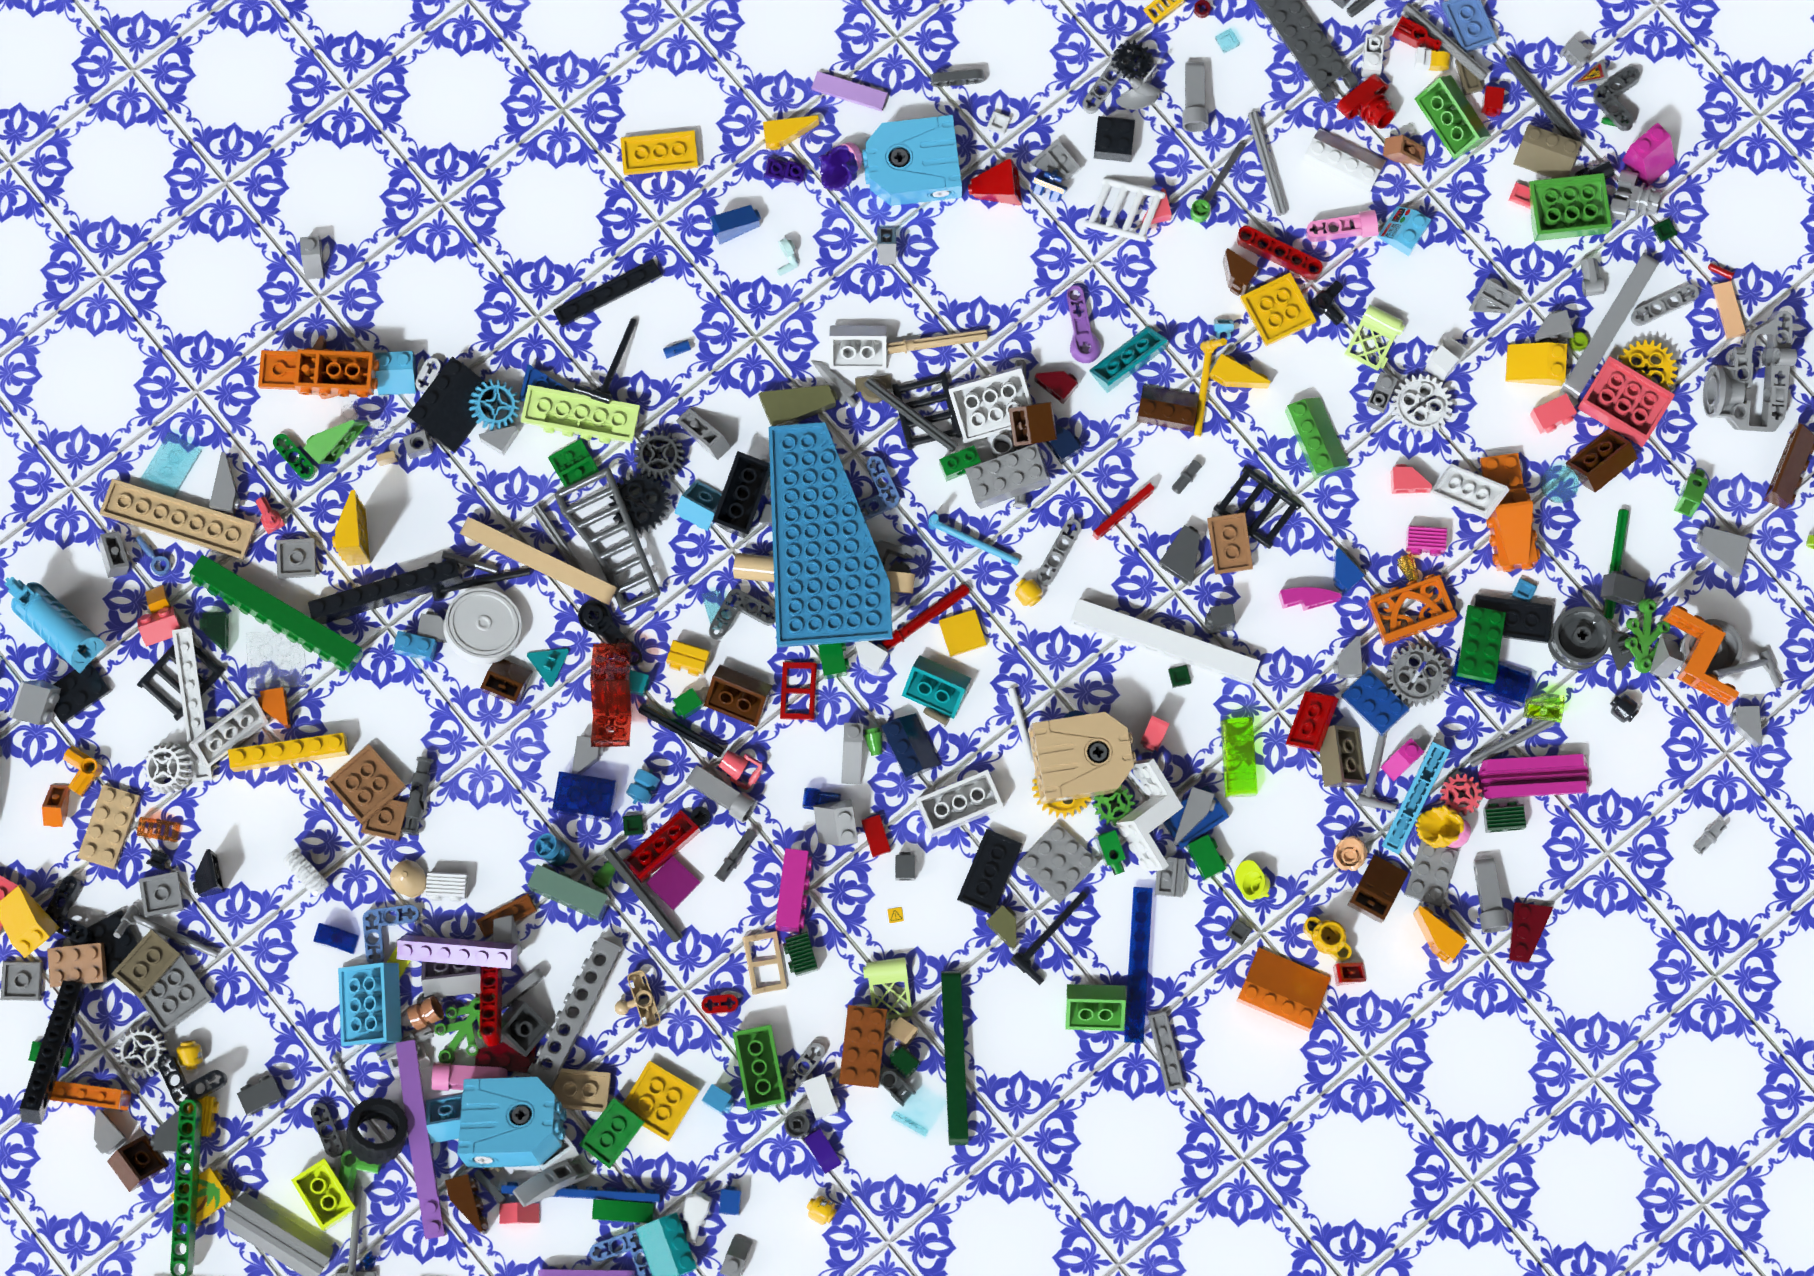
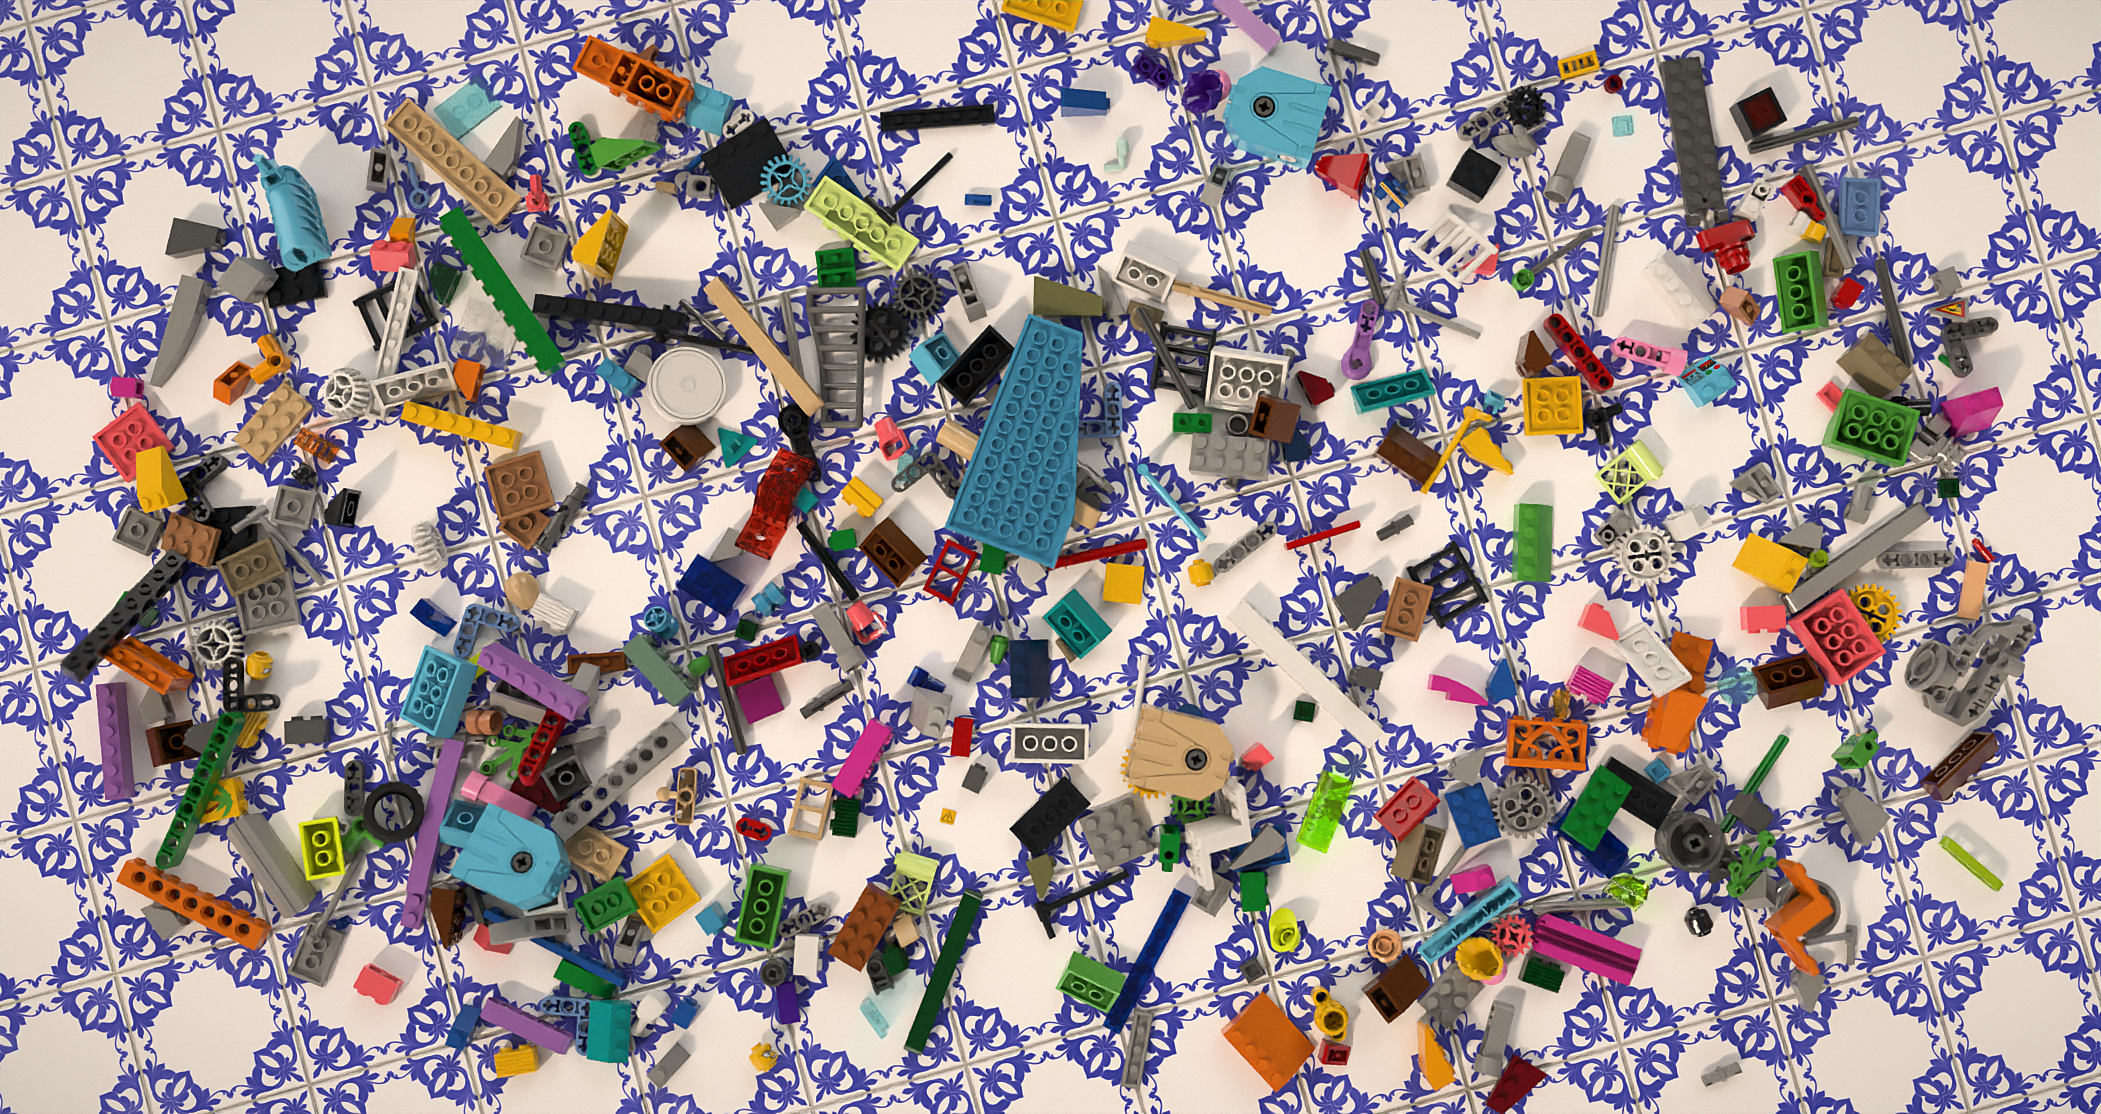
camera: 20 degrees right, 10 degrees up
(82, 1183) = (115, 740): none -> medium lavender brick
(402, 425) = (695, 162): none -> blue piece
(648, 1156) = (629, 939): none -> light grey slope
(688, 591) = (888, 435): none -> coral piece
(1064, 265) = (1372, 276): none -> dark grey axle
(1094, 277) = (1394, 302): none -> light grey bar
(1560, 587) = (1693, 782): none -> light grey wing

